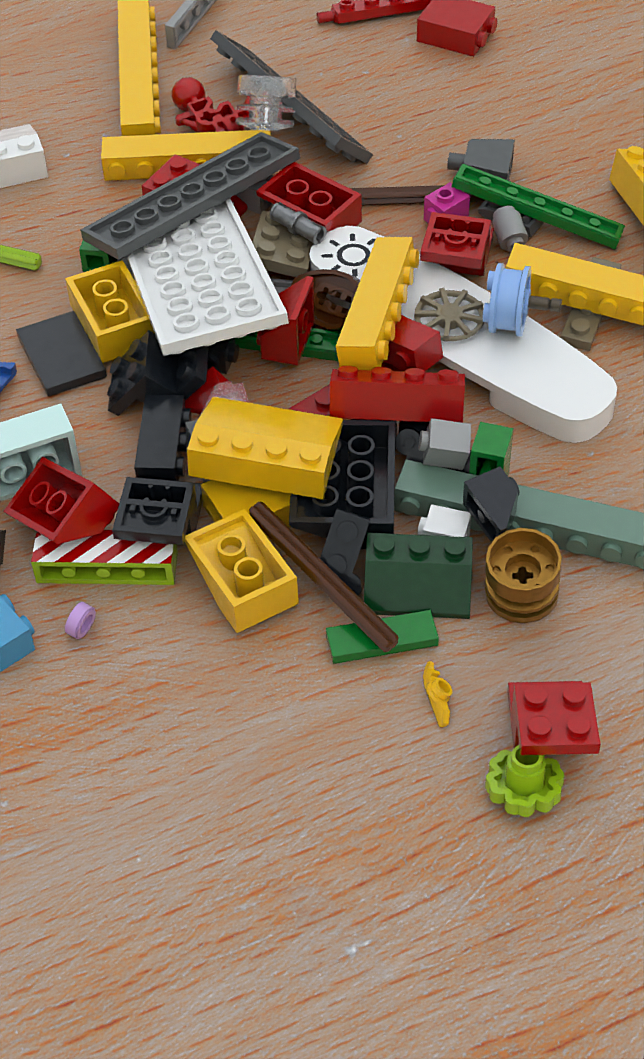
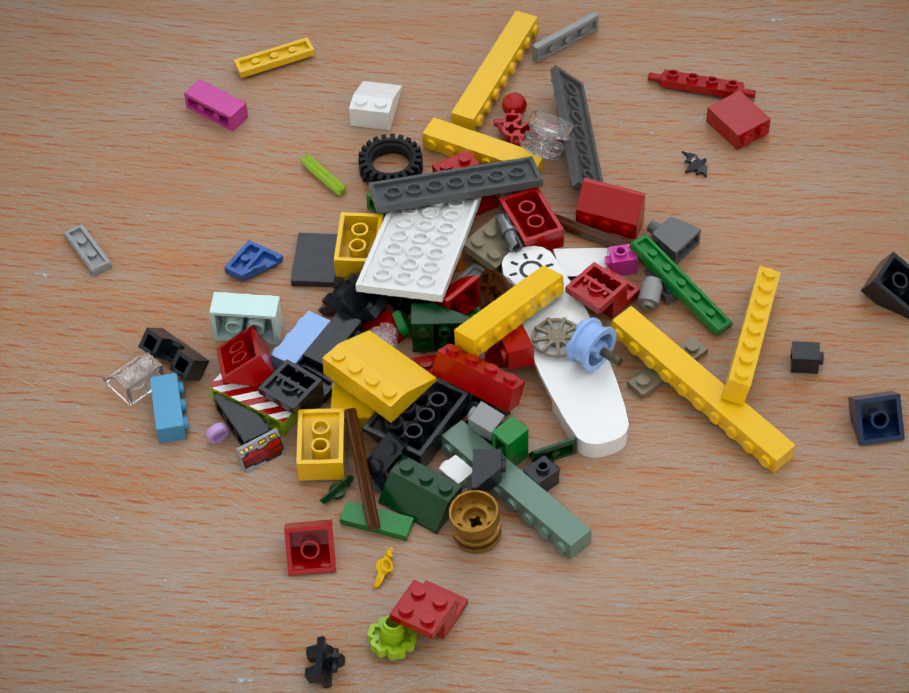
camera: 30 degrees right, 0 degrees up
(68, 189) = (385, 146): none -> black tyre
(113, 592) = (242, 422): none -> black slope
(115, 451) = (299, 339): none -> light blue brick
(158, 617) = (260, 450): none -> slope
(235, 376) = (403, 323): none -> green tile
(291, 364) = (433, 326): none -> dark green slope
(300, 622) = (337, 490): none -> dark green piece
(322, 711) = (310, 547): none -> red slope
(394, 154) = (611, 208): none -> red slope
(401, 223) = (578, 259): none -> white sticker
(443, 84) = (695, 164): none -> black piece
(445, 850) = (326, 661): none -> black hips
(539, 451) = (555, 451): none -> dark green slope
(553, 476) = (543, 472): none -> black brick

